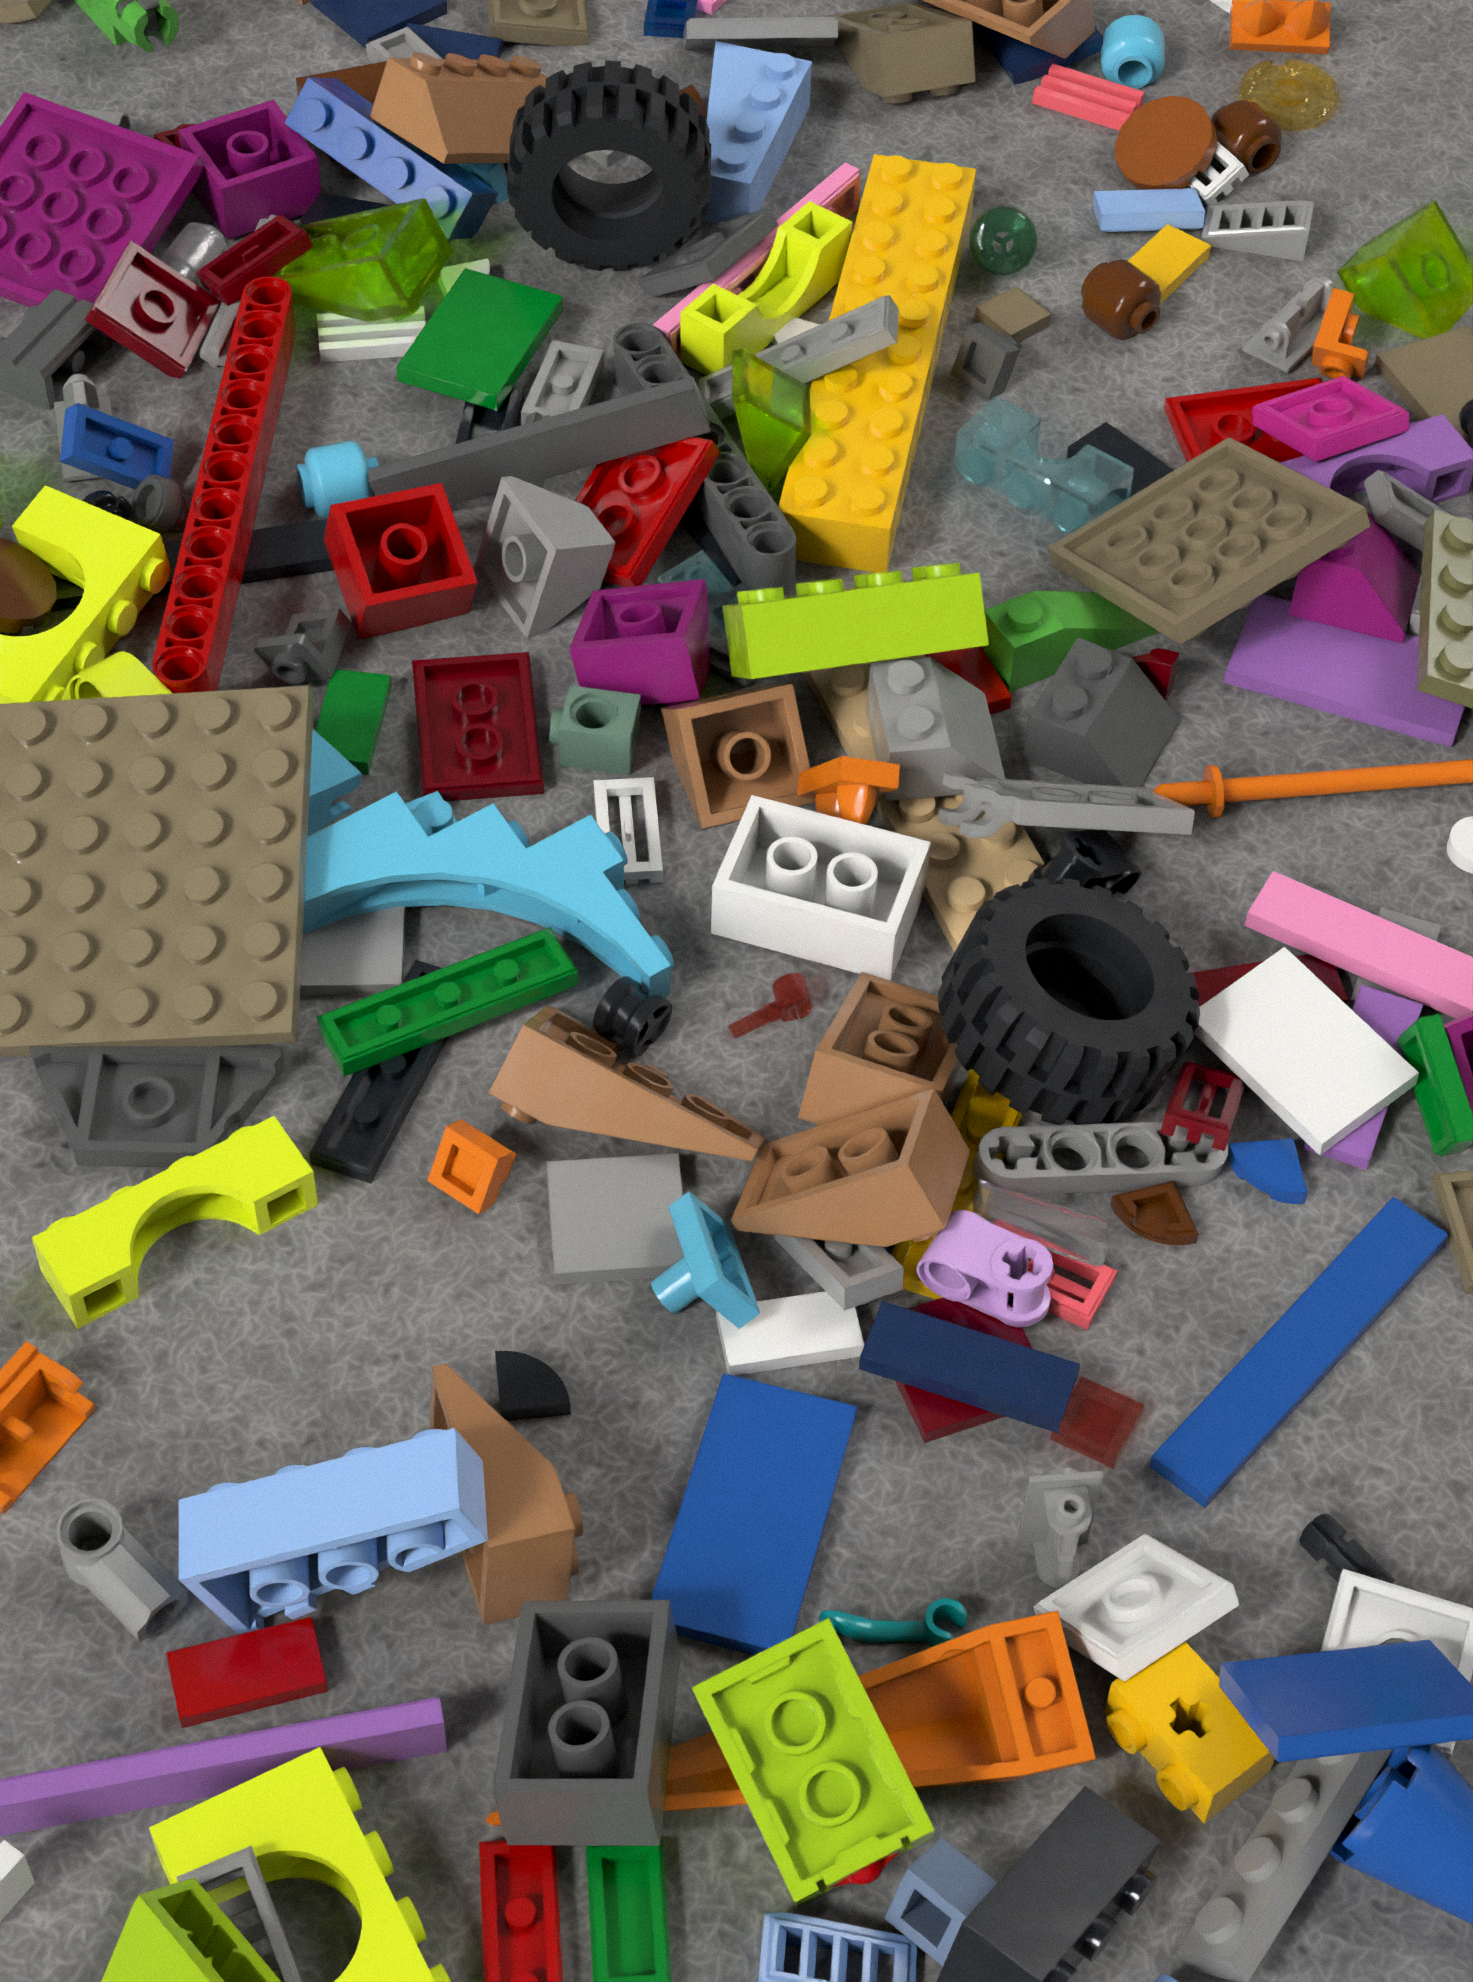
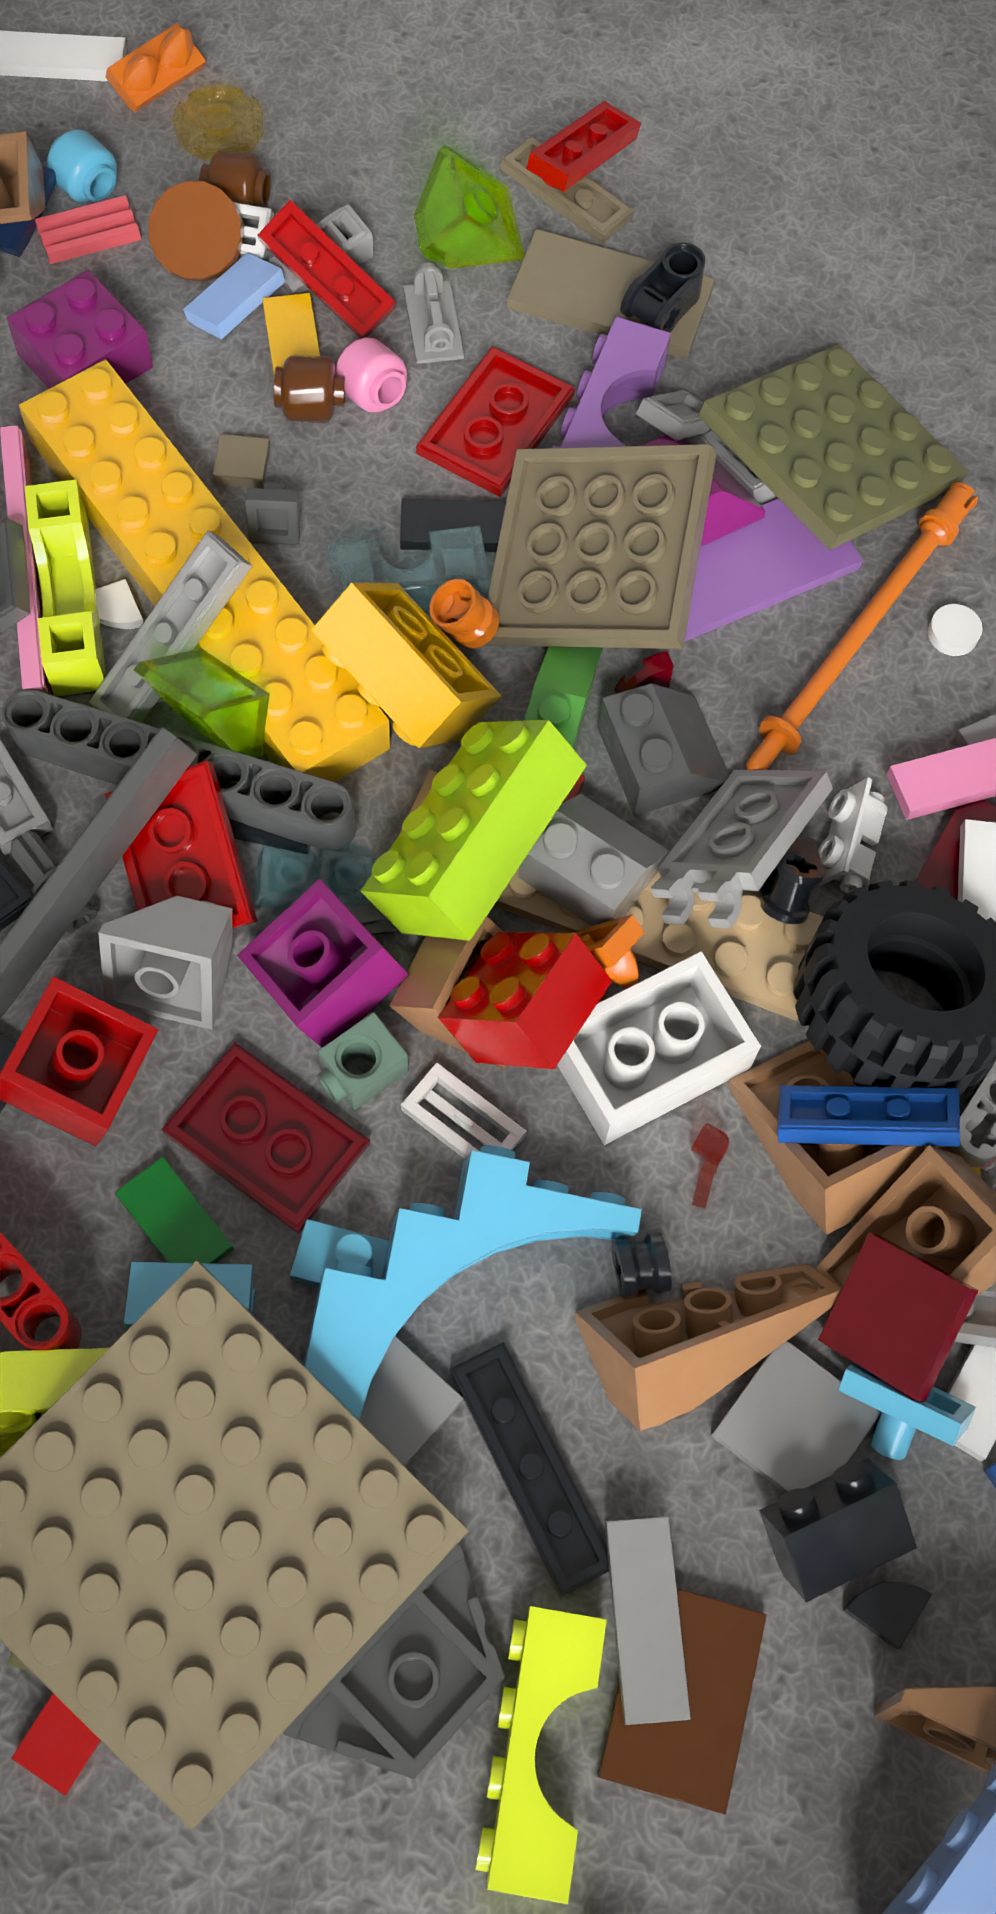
camera: 50 degrees left, 15 degrees up
(308, 647) = (78, 1194): dark grey bracket -> none
(312, 1293) = (697, 1756): none -> reddish brown tile
(343, 1212) = (646, 1621): none -> light grey tile
(447, 1001) = (516, 1384): green tile -> none
(470, 1166) = (678, 1488): orange tile -> none
(550, 1283) = (838, 1528): none -> black brick
(752, 755) = (525, 999): none -> red brick
(768, 1185) = (897, 1316): none -> dark red tile
(921, 1047) = (869, 1115): none -> blue tile
(948, 493) = (404, 664): none -> yellow brick
(991, 139) = (78, 329): none -> magenta brick
(1003, 219) = (178, 402): clear green head -> none
(1045, 514) = (464, 613): none -> orange wheel
(1187, 325) = (372, 374): none -> bright pink head
(1202, 891) = (855, 817): none -> white hinge
(1237, 234) = (326, 270): none -> red plate
(1330, 418) = (552, 378): dark pink tile -> none
(1334, 339) = (473, 302): orange bracket -> none

